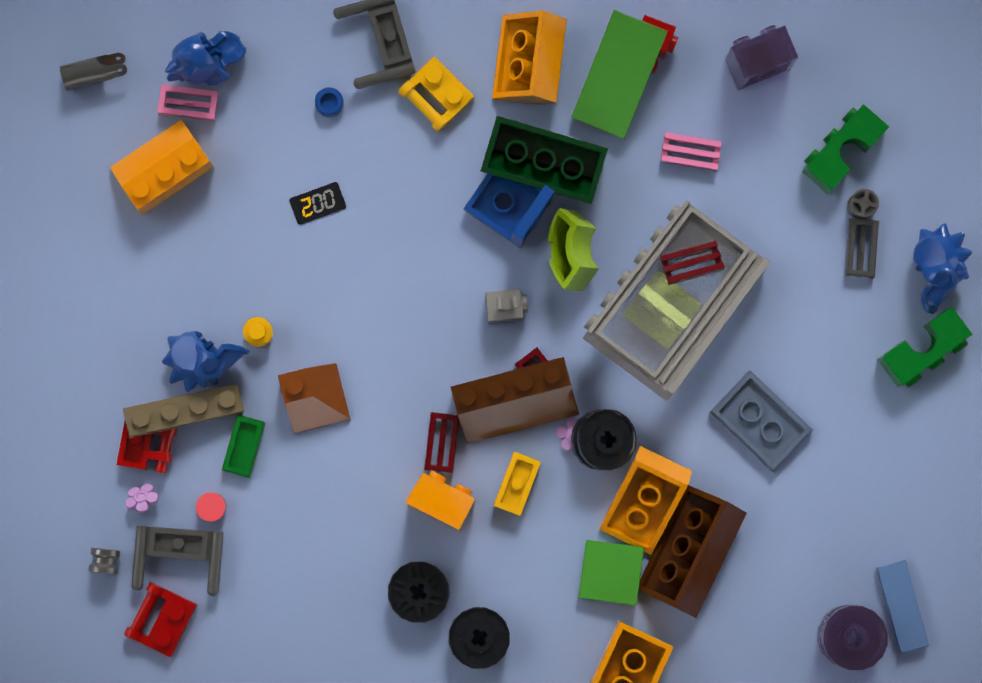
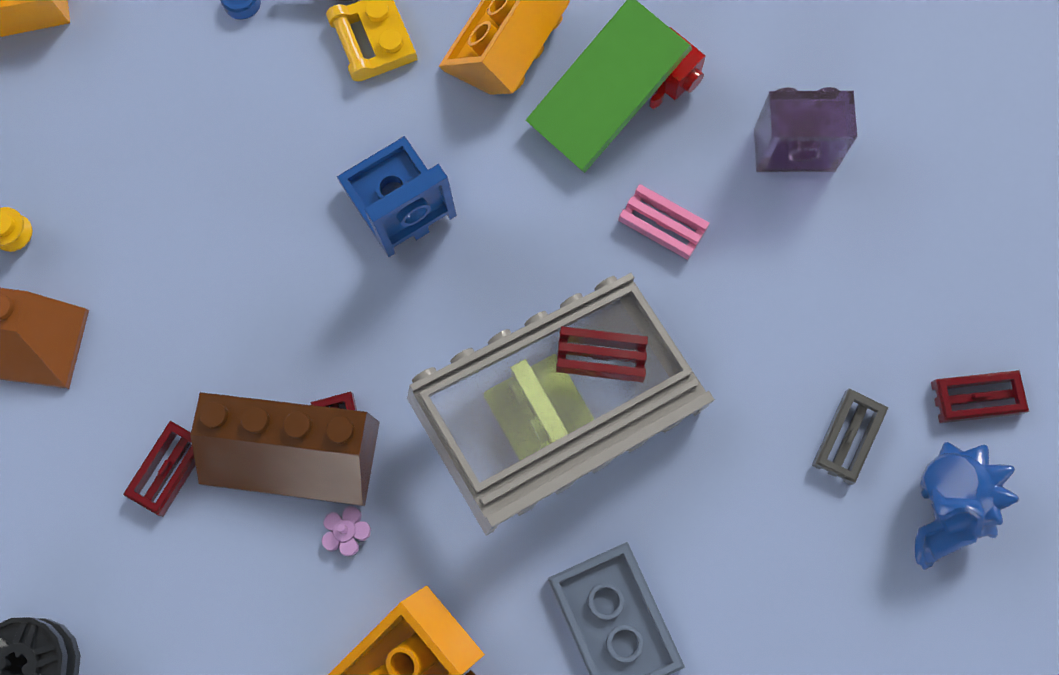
camera: 30 degrees right, 10 degrees down
(317, 203) = (168, 109): black sticker -> none
(441, 500) = (101, 548): light orange slope -> none
(505, 306) = (331, 319): light grey brick -> none
(517, 483) = (234, 568): yellow plate -> none
(544, 158) = (480, 157): dark green slope -> none
(570, 250) = (449, 279): lime brick -> none
(606, 423) = (389, 579): black wheel -> none
(861, 129) = (905, 276): green arch -> none
(865, 199) = (880, 369): flat silver wheel -> none
(911, 201) = (945, 401): none -> dark red tile
(946, 334) = (934, 606): green arch -> none

